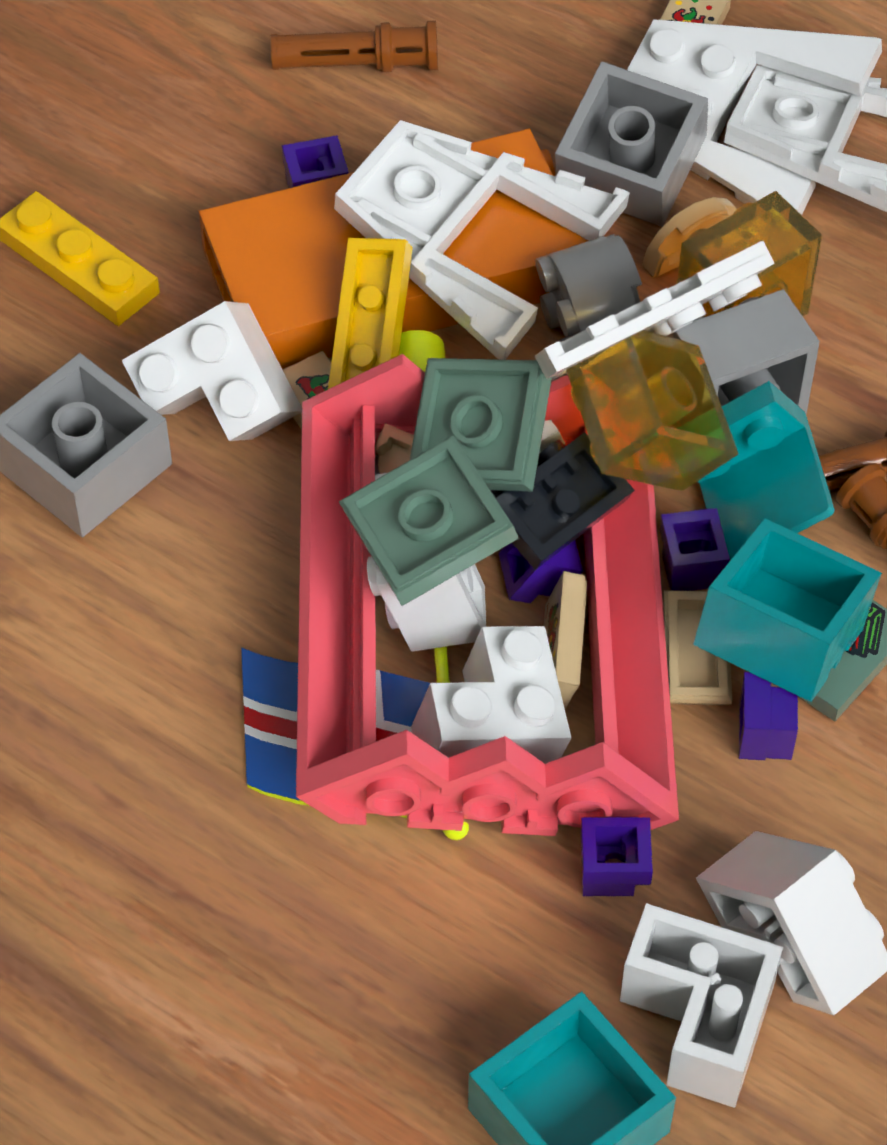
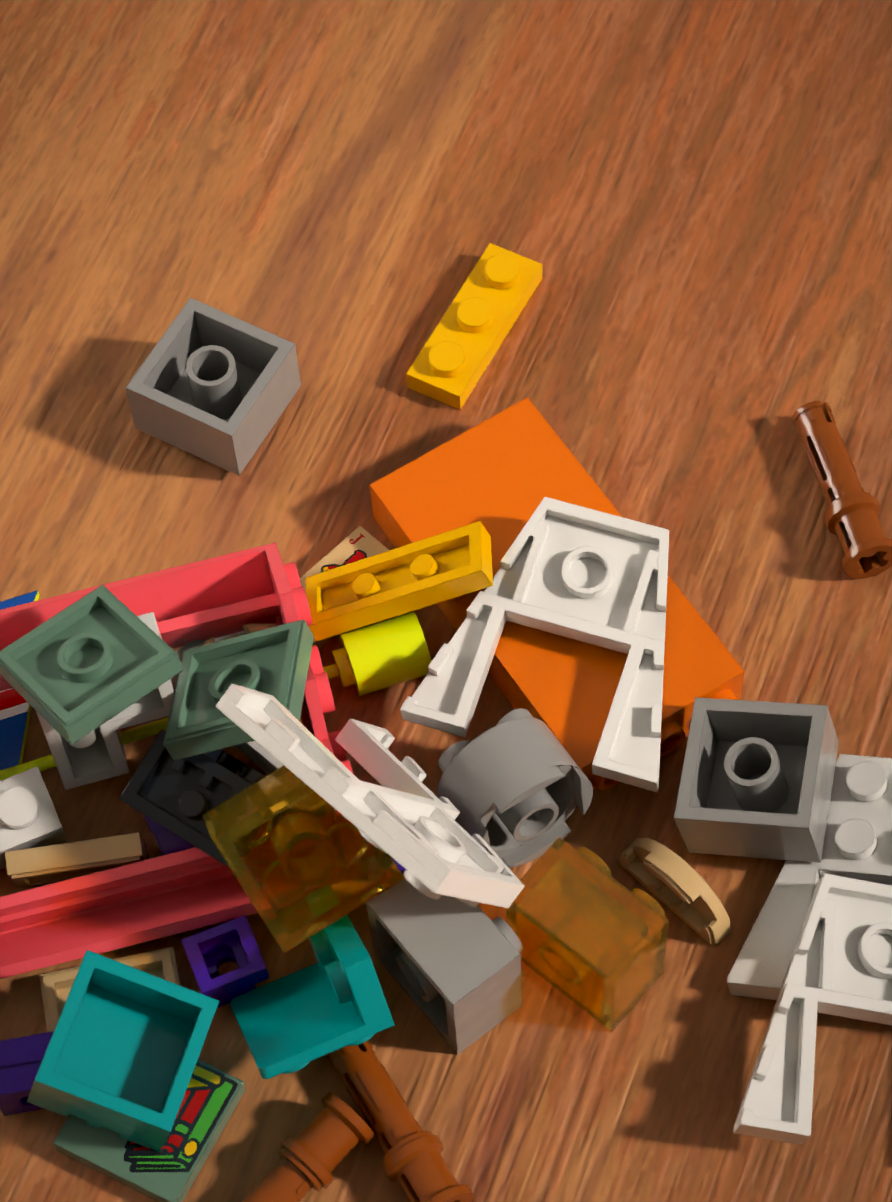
camera: 80 degrees right, 5 degrees up
(221, 359) = (321, 476): white brick -> none
(313, 161) = (639, 480): dark purple piece -> none

